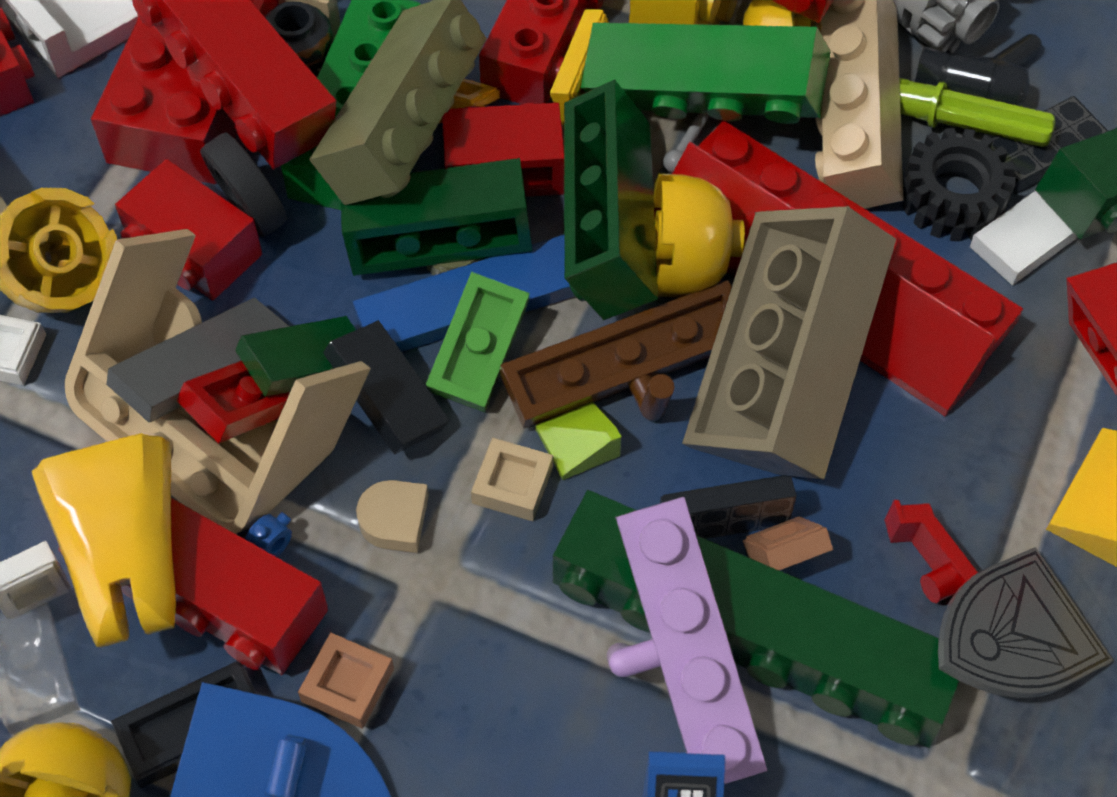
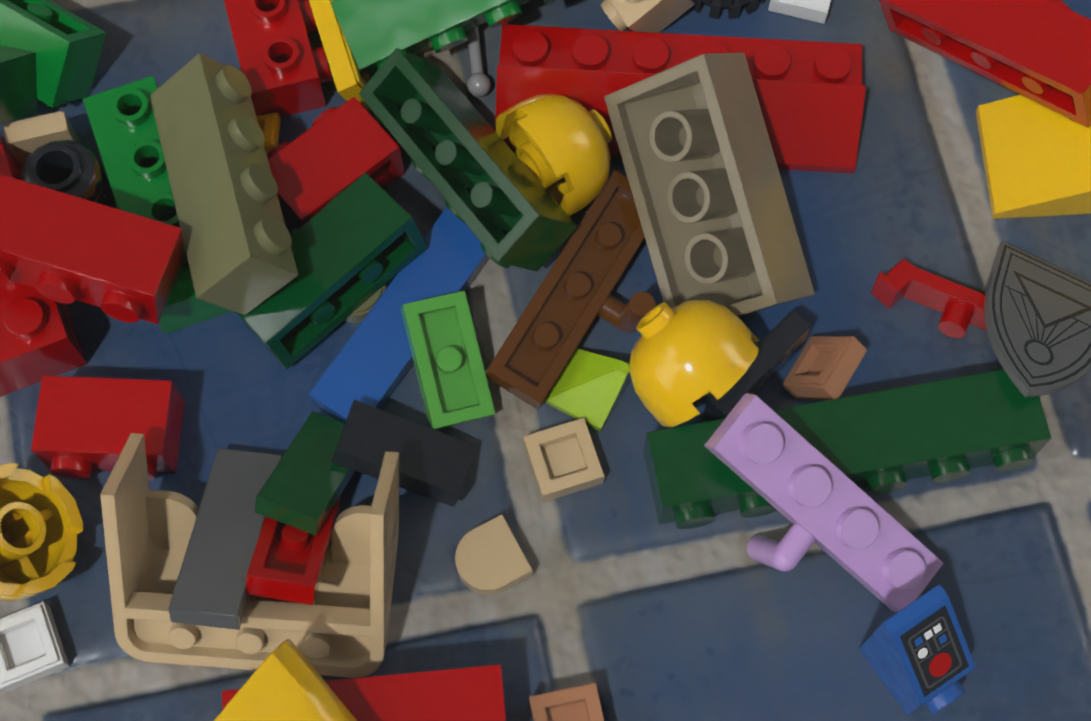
camera: 35 degrees left, 10 degrees up
(244, 183) = (130, 351): black tyre -> none
(271, 533) = (405, 649): blue piece -> none
(667, 447) = (687, 355): none -> yellow cylinder

